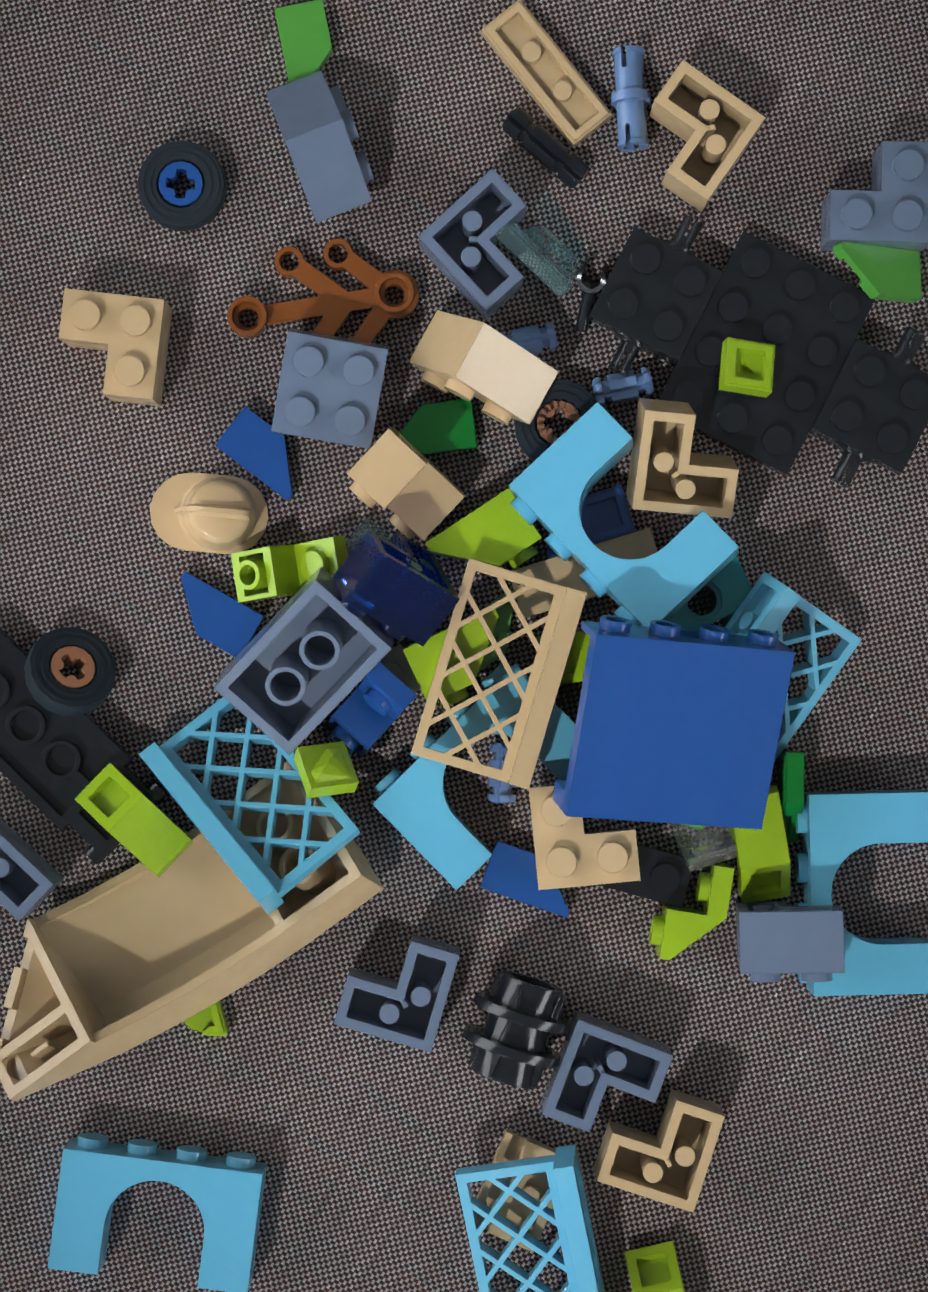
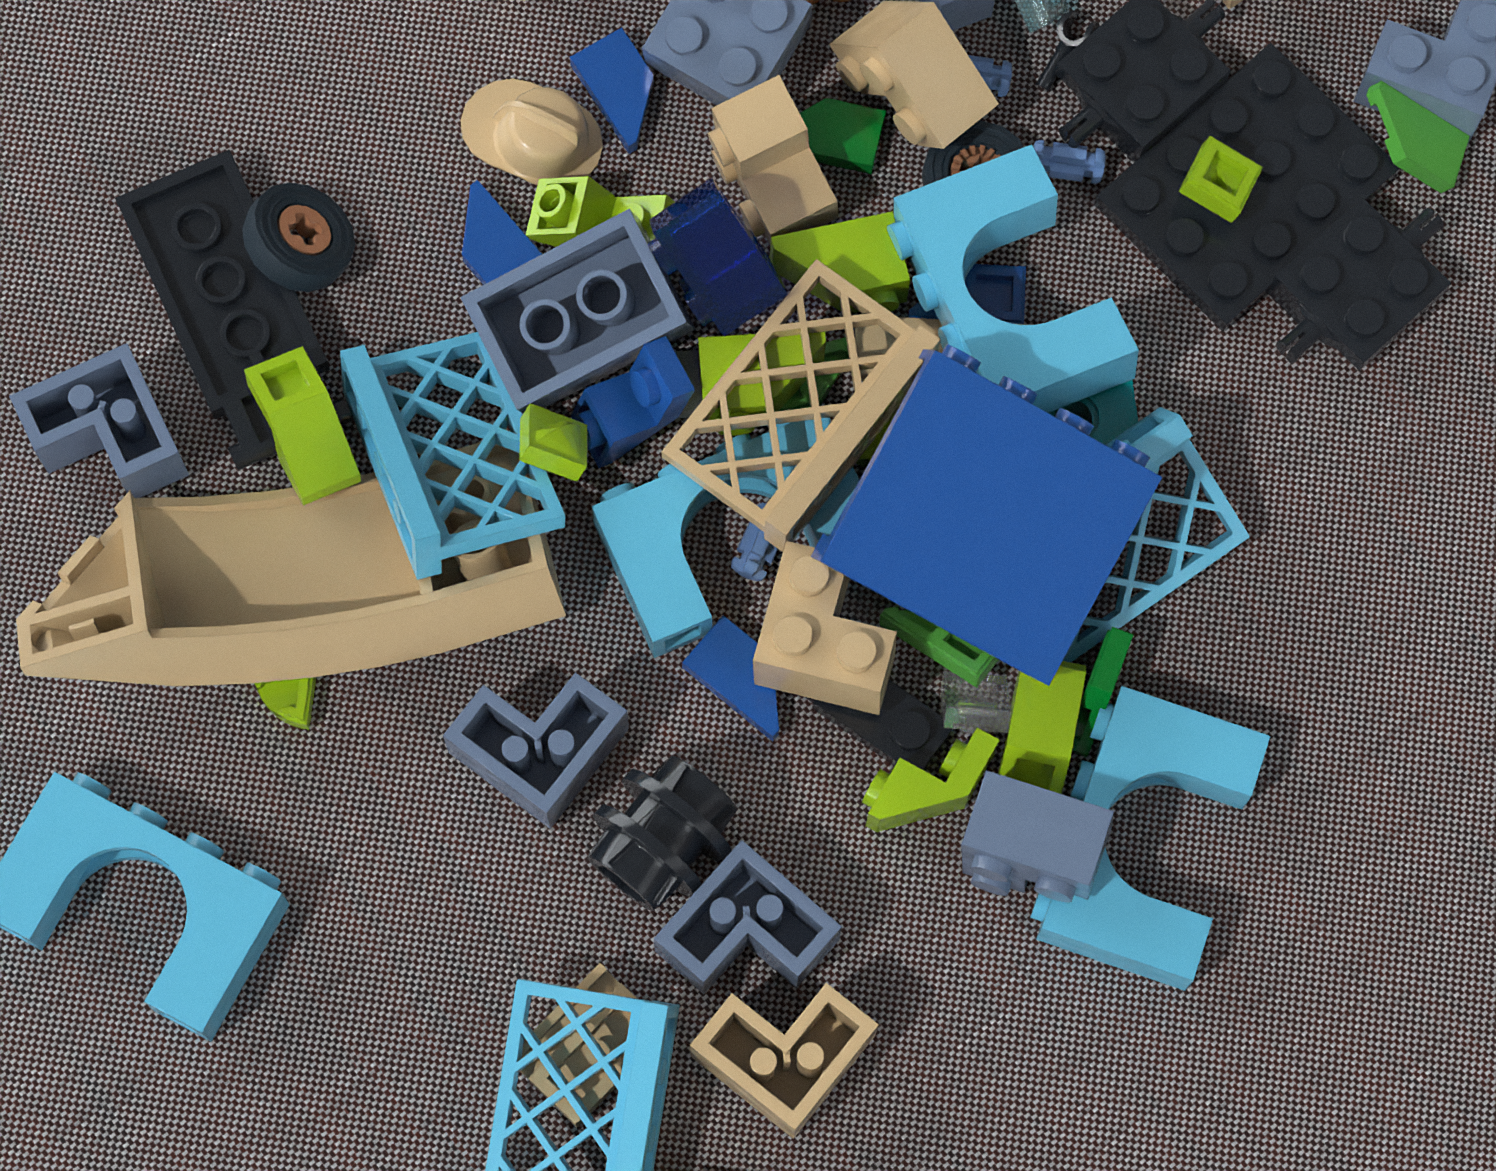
camera: 20 degrees right, 15 degrees down
(666, 472) = (1081, 256): tan brick -> none

